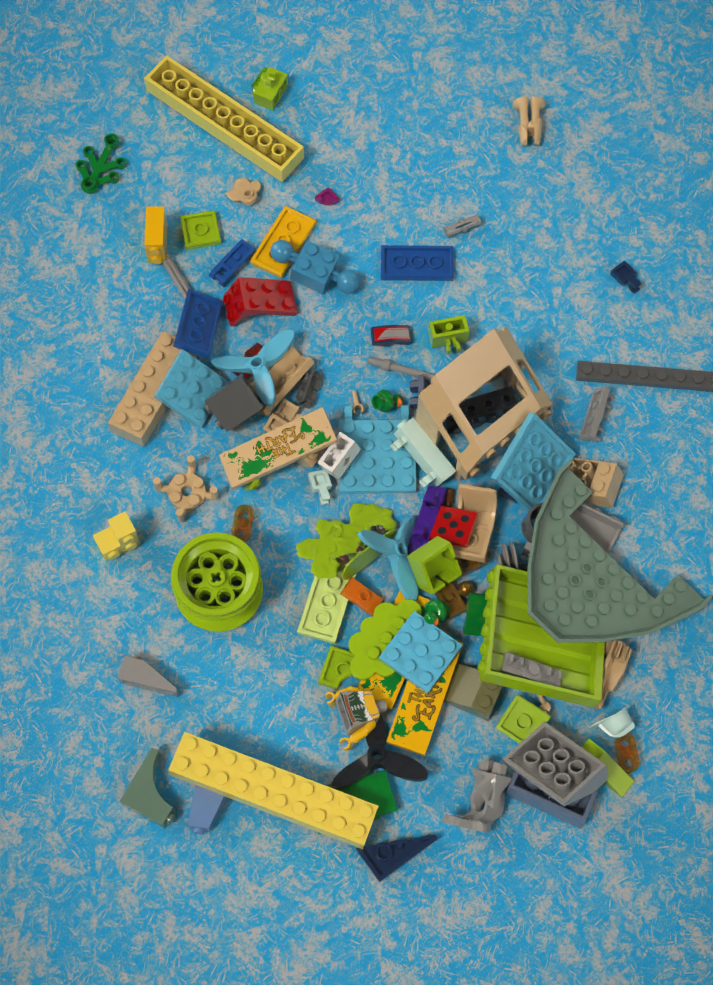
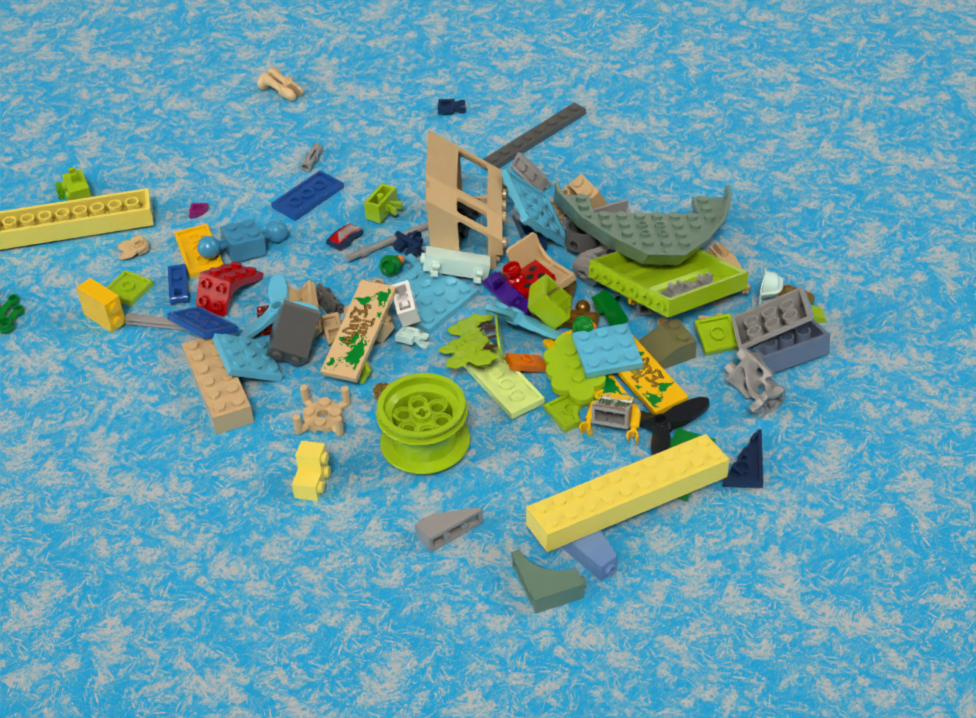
camera: 45 degrees left, 25 degrees down
(442, 511) = (514, 275): none -> red wheel

